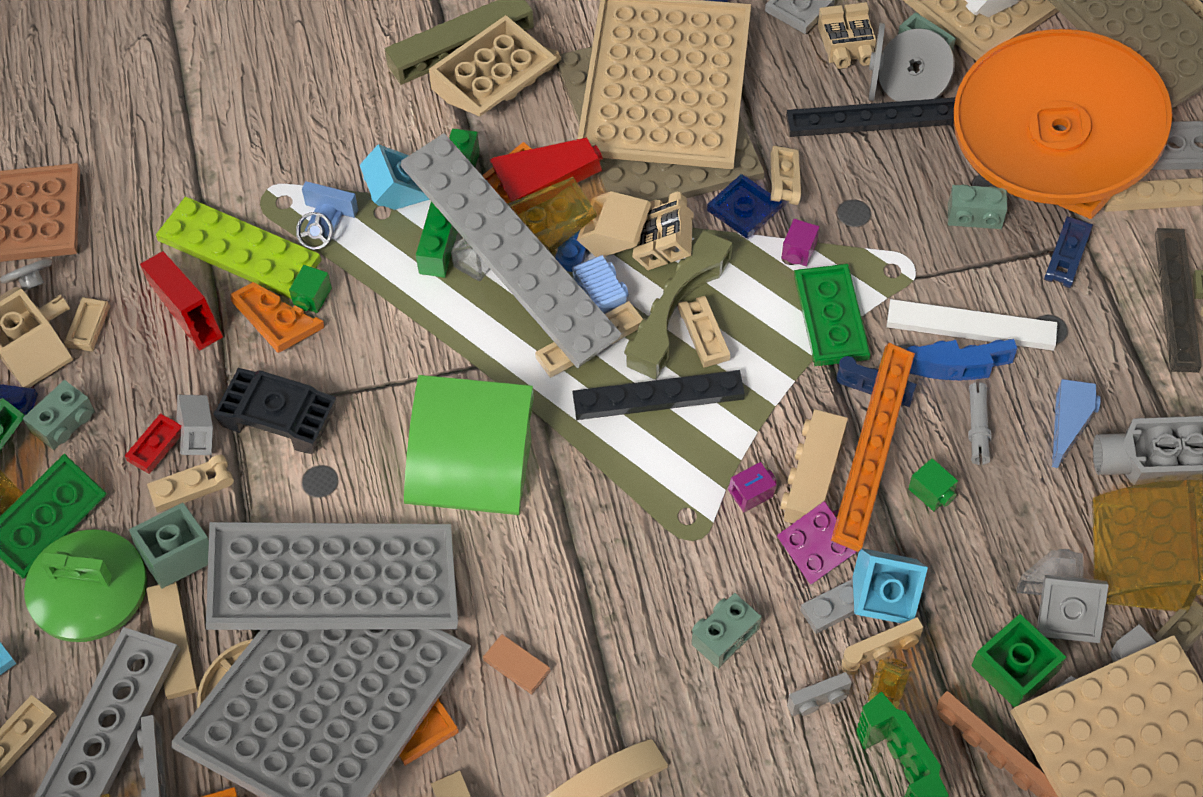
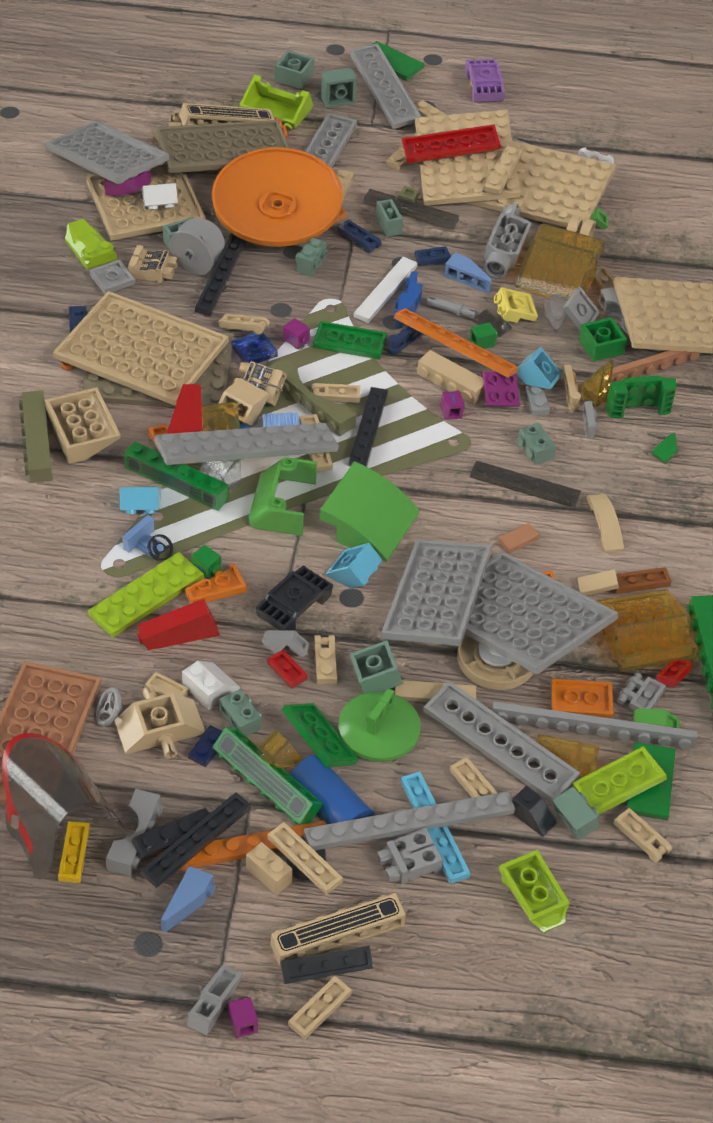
camera: 75 degrees left, 10 degrees down
(103, 363) = (207, 683): none -> white slope
(366, 463) = (355, 566): none -> medium azure slope
(459, 316) = (270, 511): none -> bright green windscreen
(637, 643) = (525, 484): none -> clear smoke plate
(977, 491) = (498, 323): none -> clear smoke slope
(1032, 510) = (515, 305): none -> light yellow plate
(1083, 360) = (432, 256): none -> dark blue plate
(1126, 273) = (389, 217): none -> sand green brick

